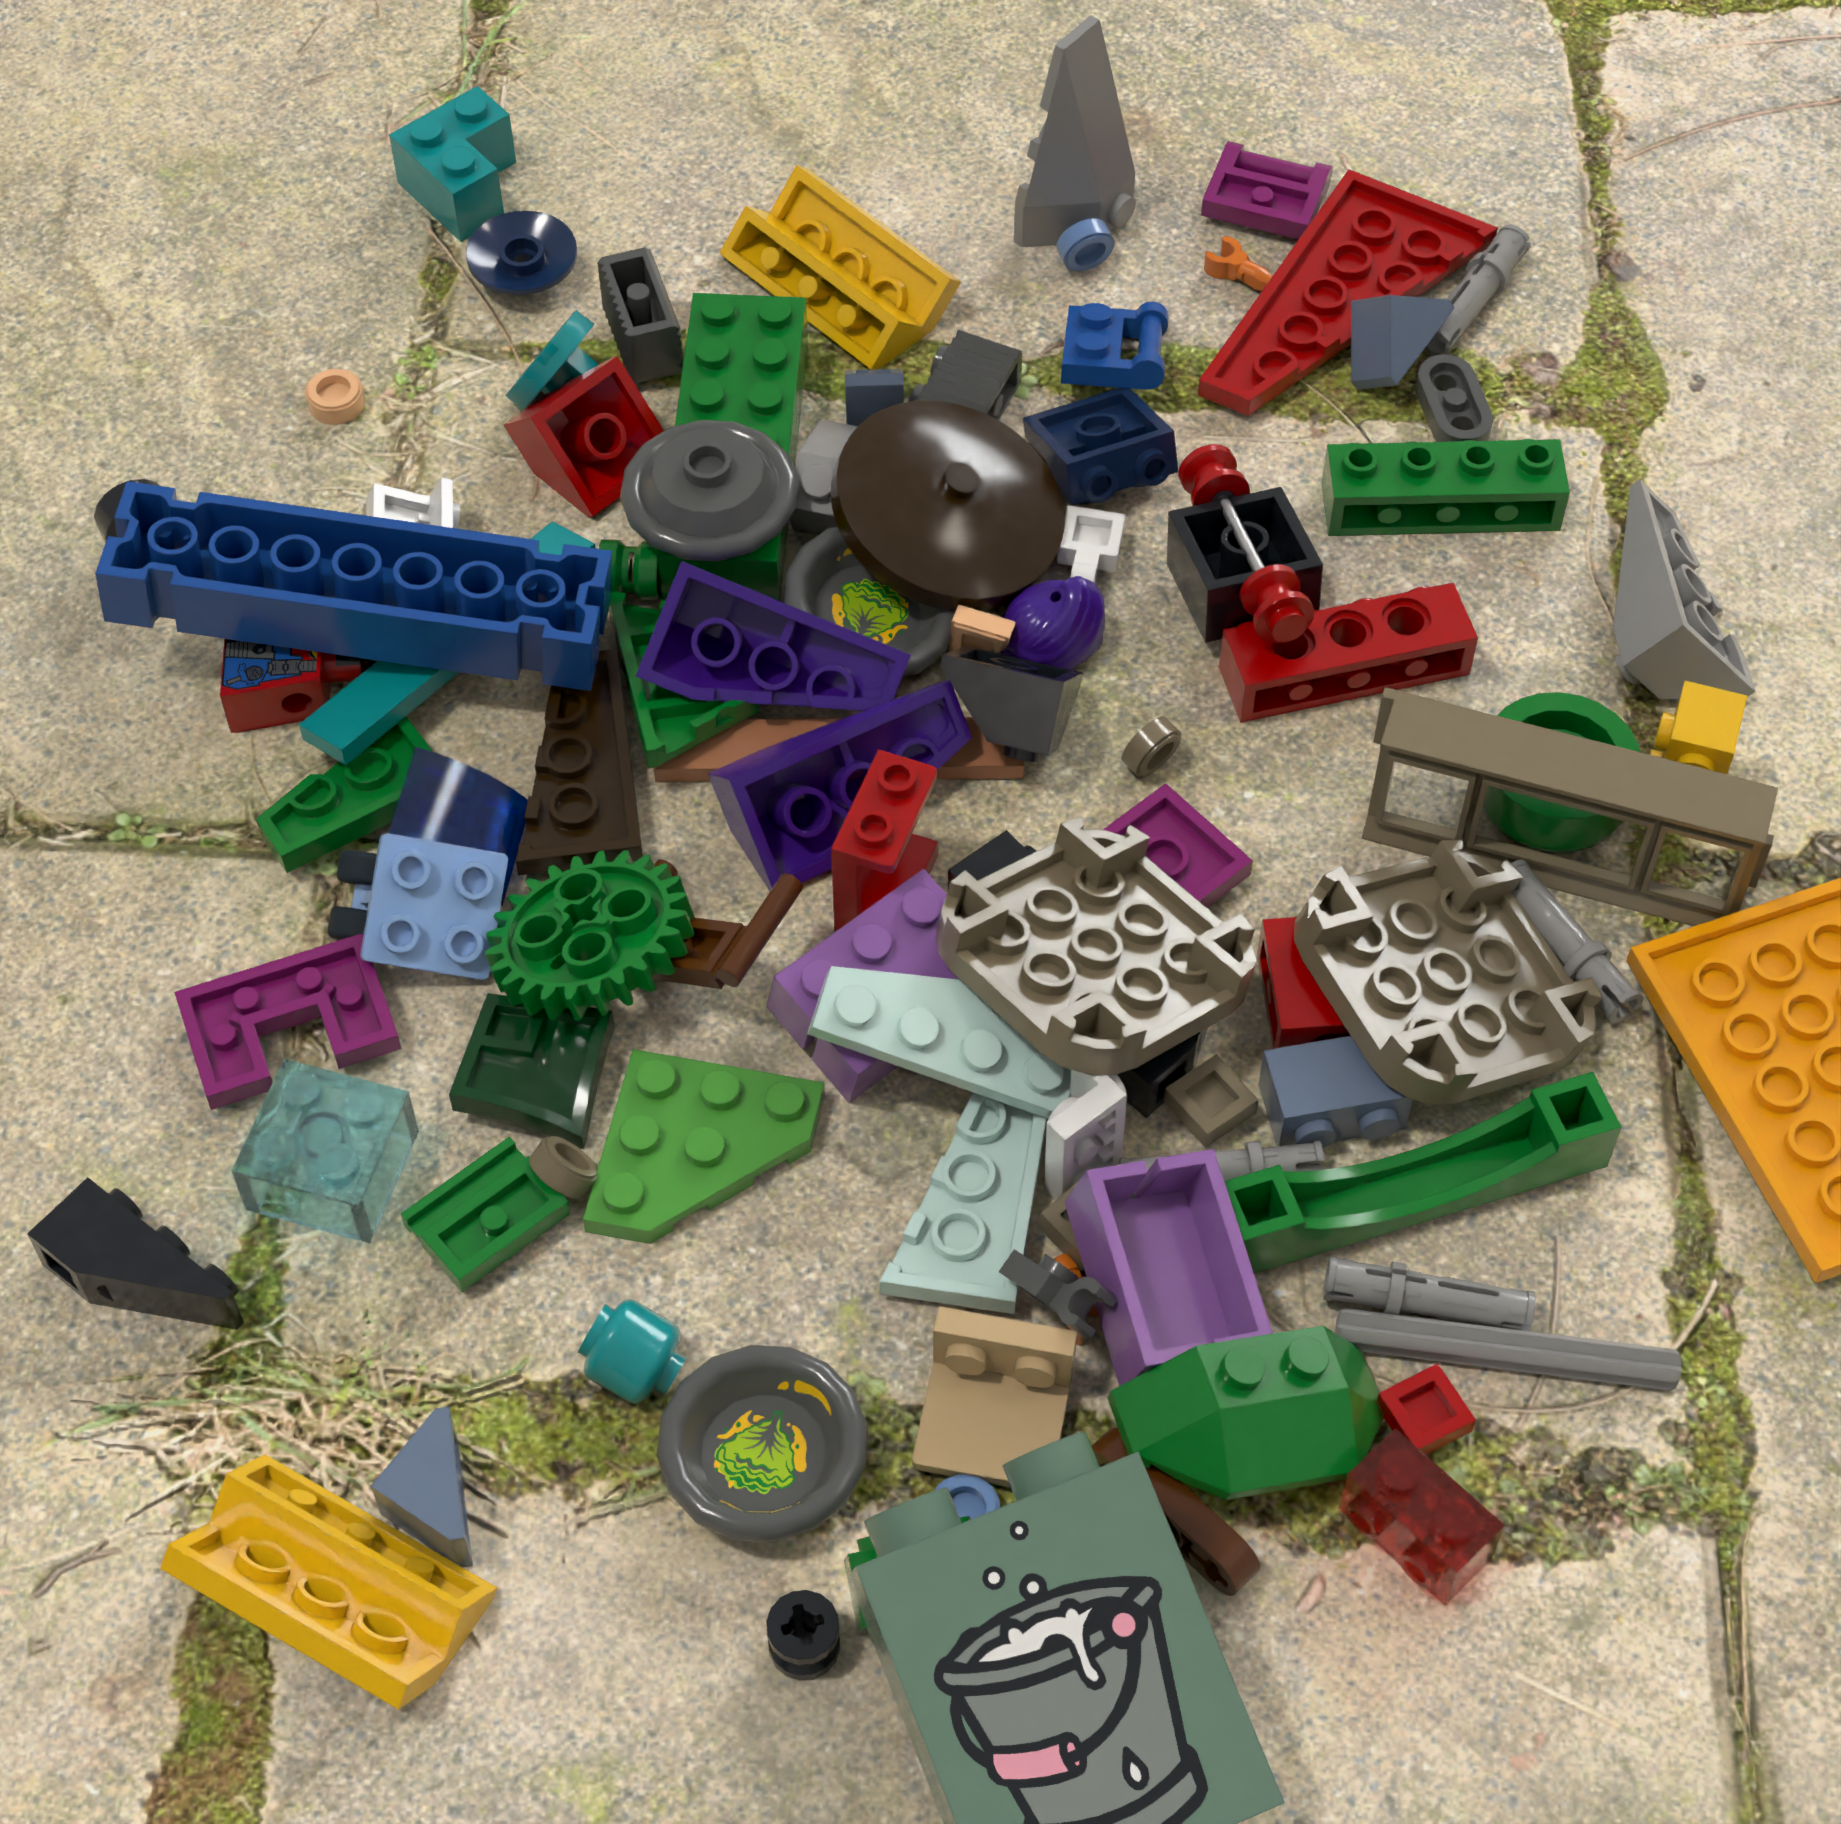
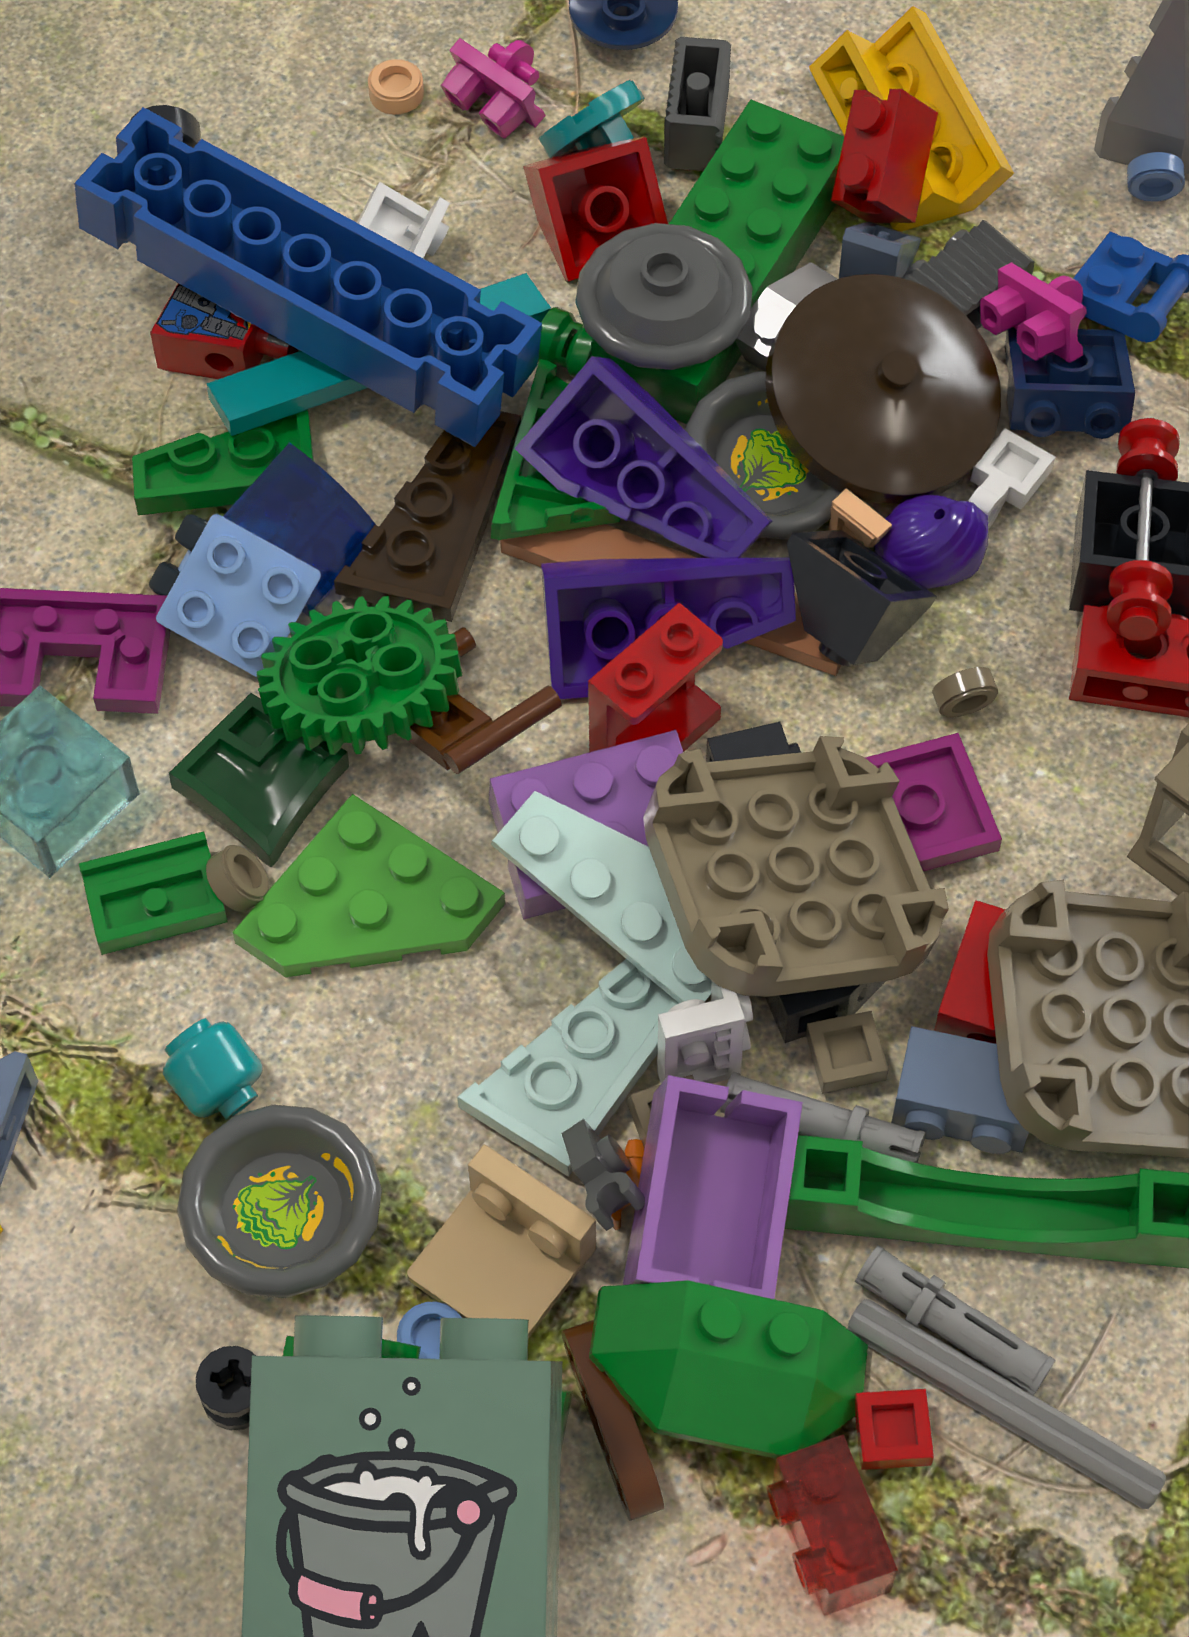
camera: 25 degrees right, 5 degrees up
(438, 353) = (502, 80): none -> dark pink hips
(842, 304) = (884, 157): none -> red brick
(1054, 391) = (1041, 312): none -> dark pink hips

